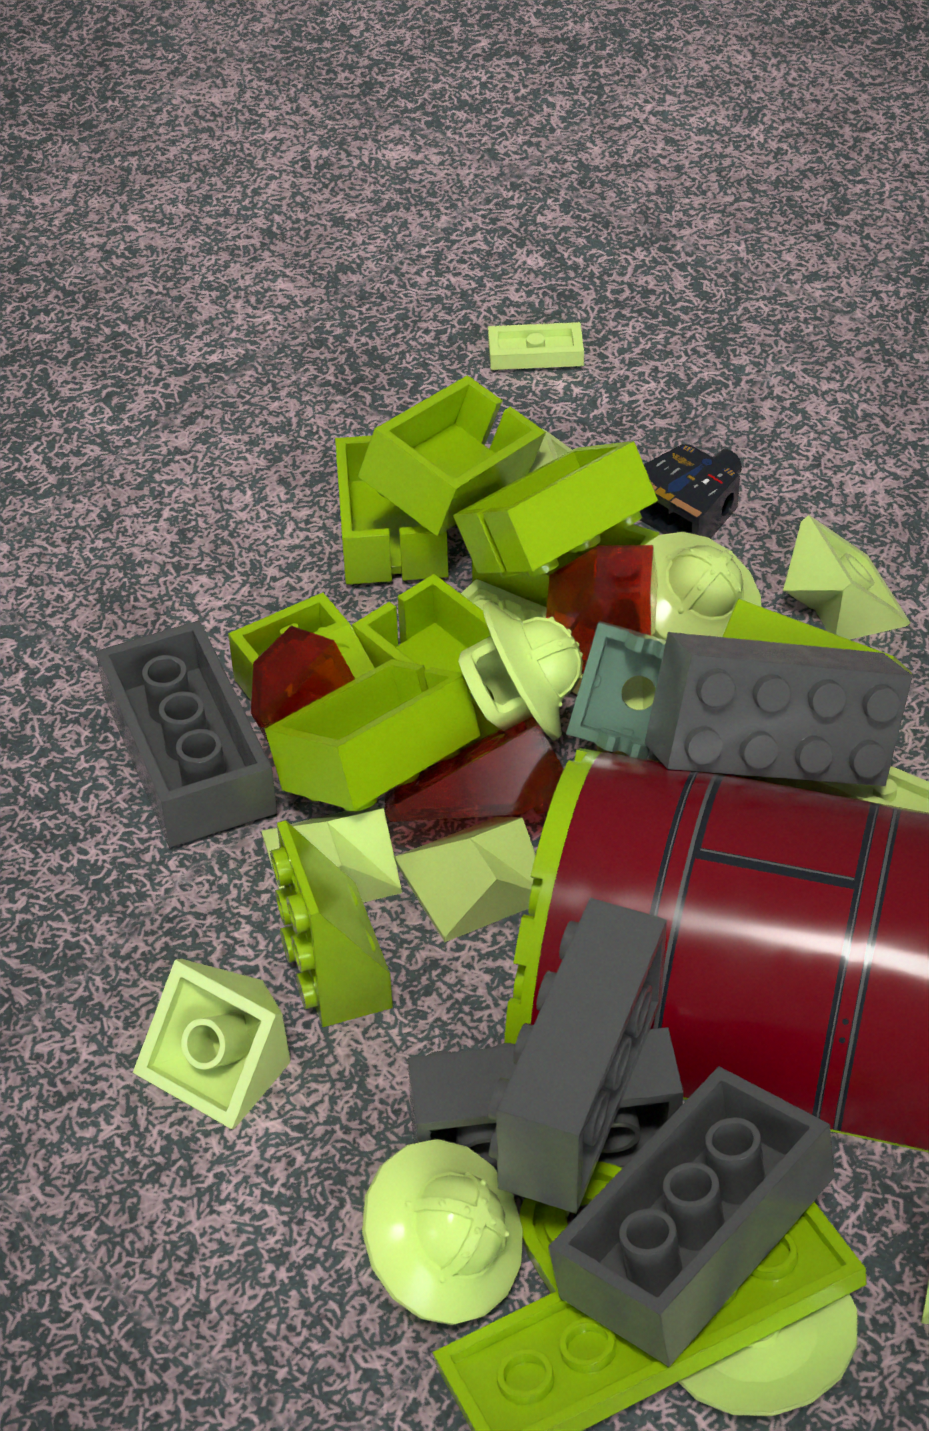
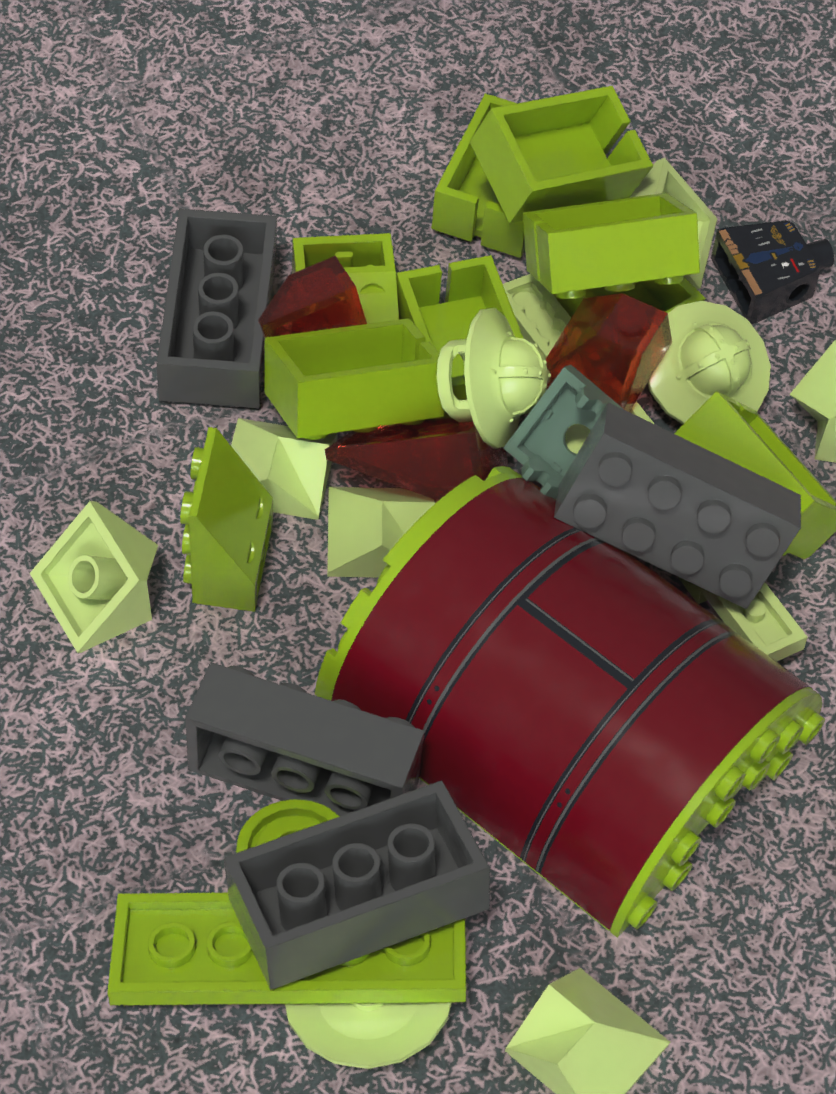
camera: 20 degrees right, 10 degrees up
(442, 1232) = (170, 807): yellowish green helmet -> none
(535, 346) = (728, 68): yellowish green plate -> none
(578, 1054) = (324, 721): dark grey brick -> none

